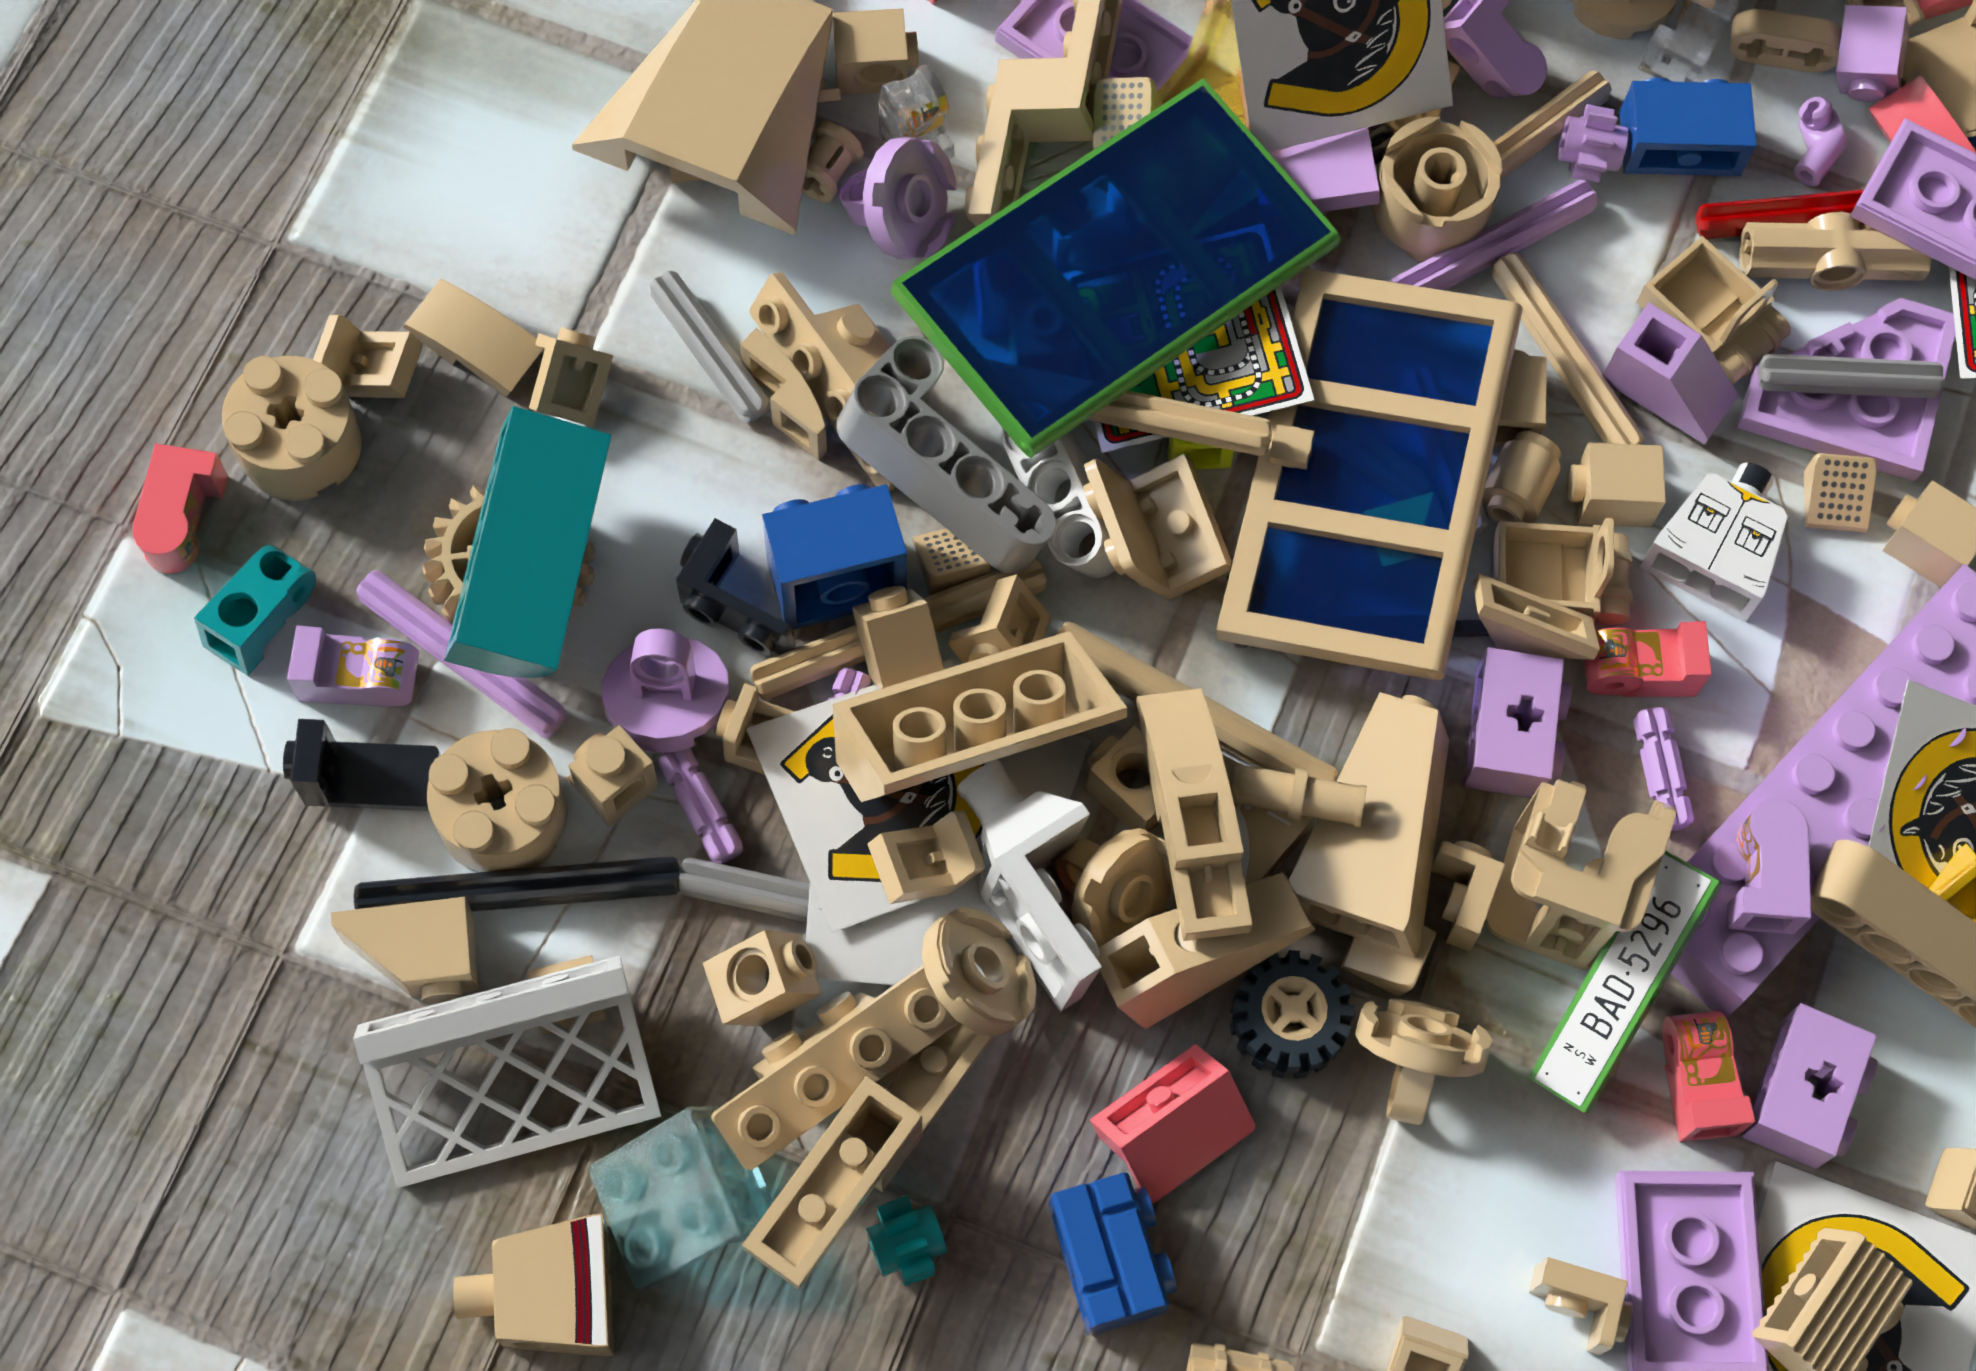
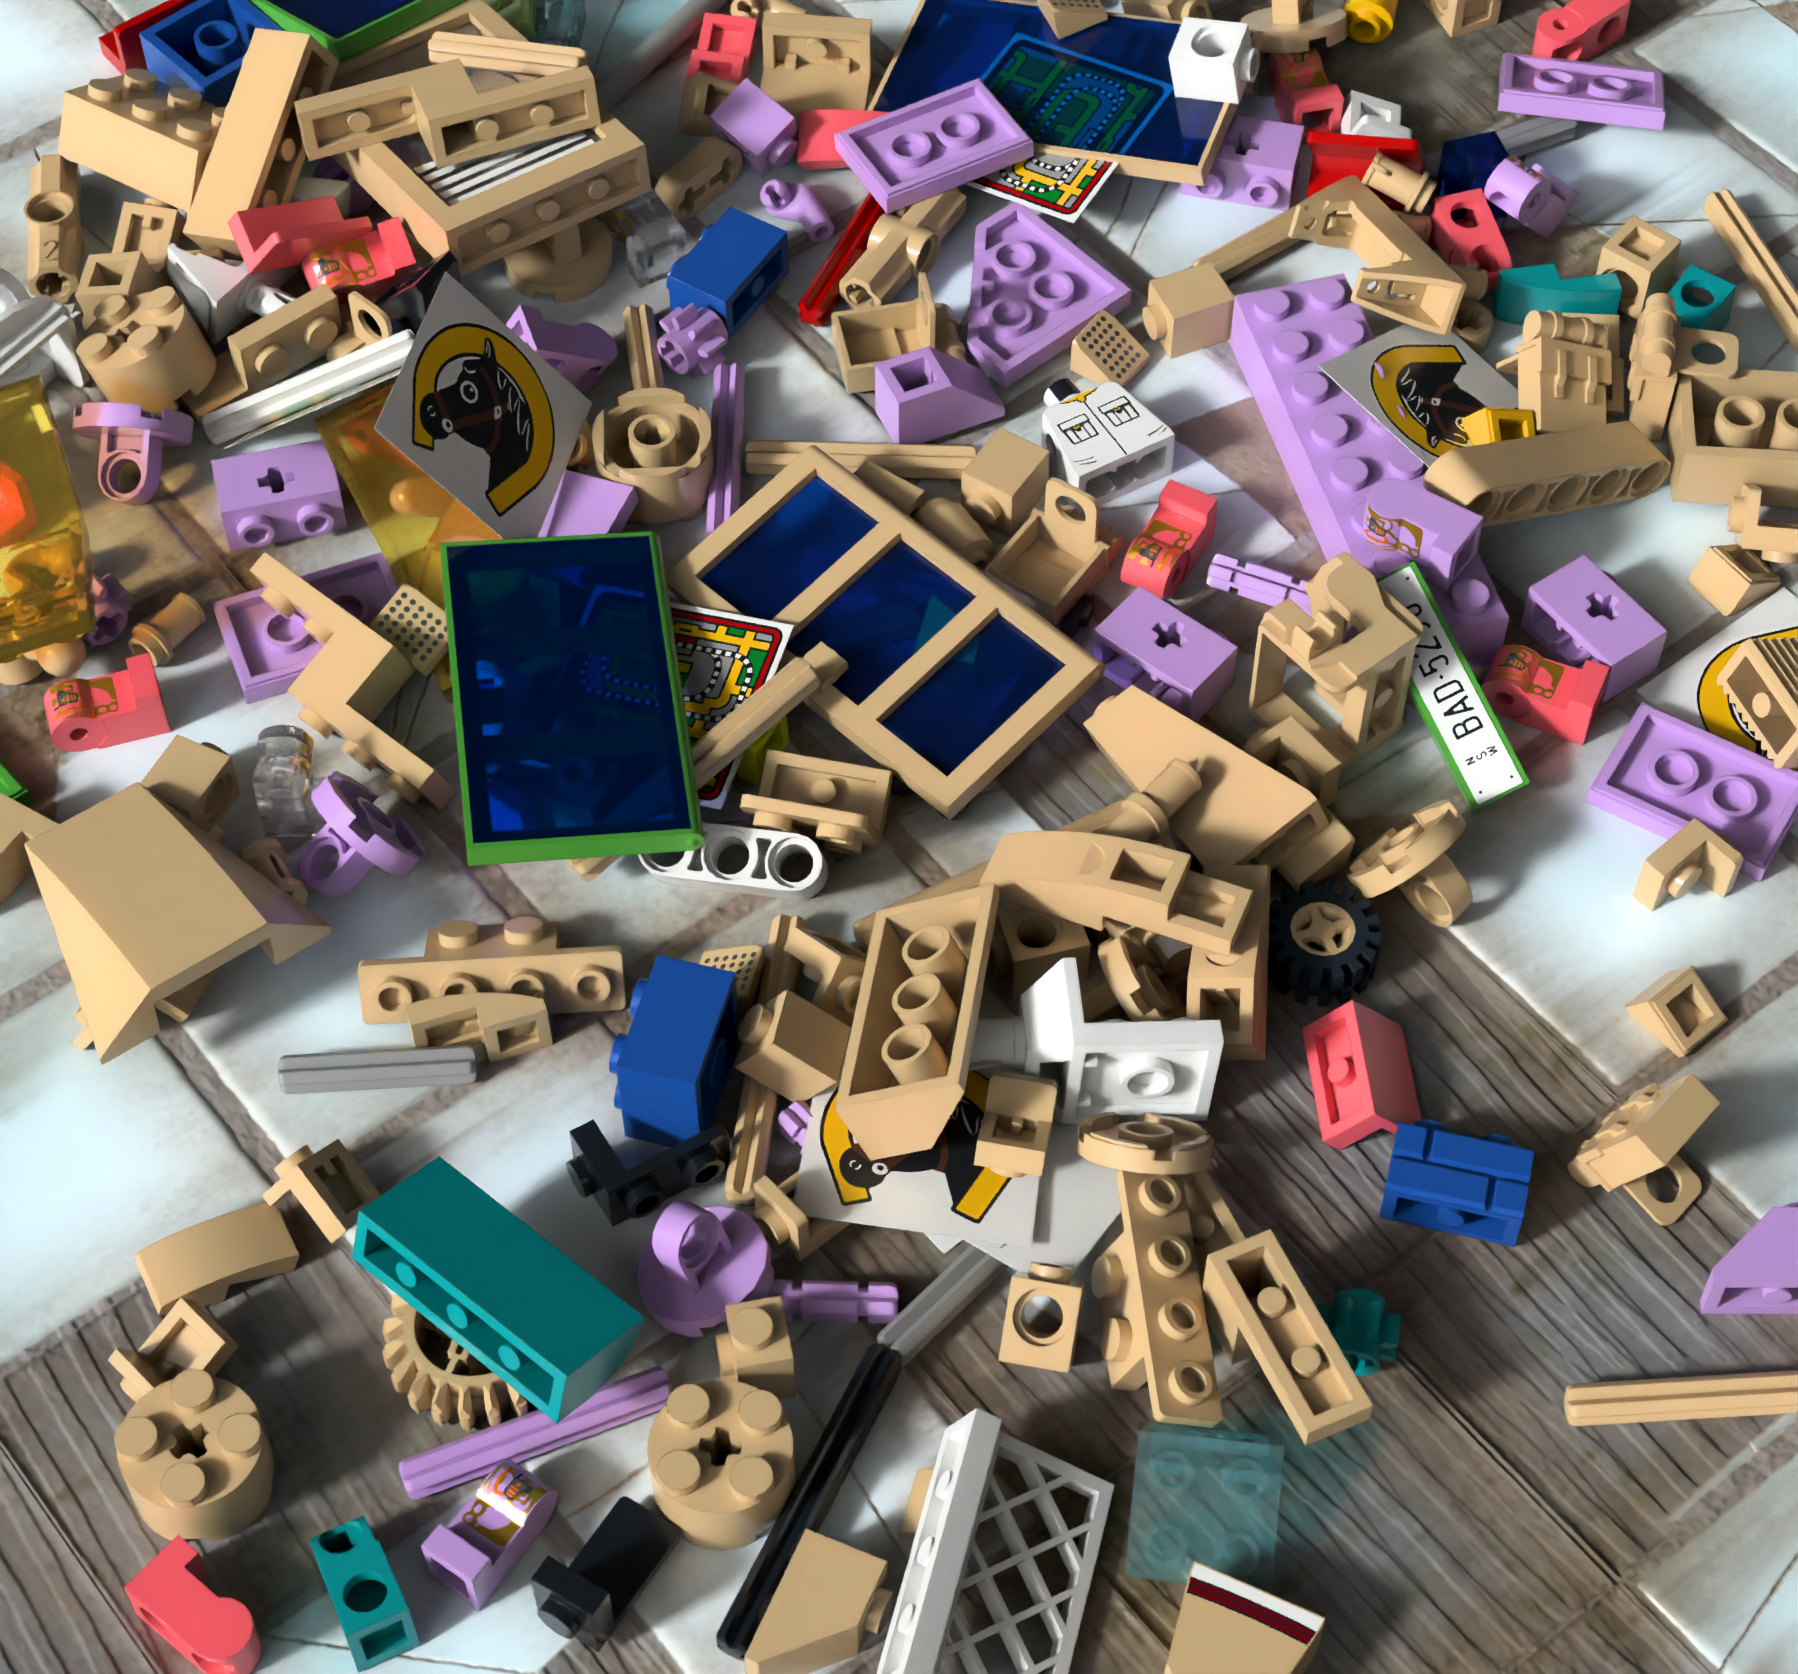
camera: 55 degrees left, 15 degrees down
(1004, 517) = (622, 929): light grey beam -> none
(1533, 624) = (1092, 594): tan slope -> none
(1850, 376) = (1022, 285): light grey axle -> none

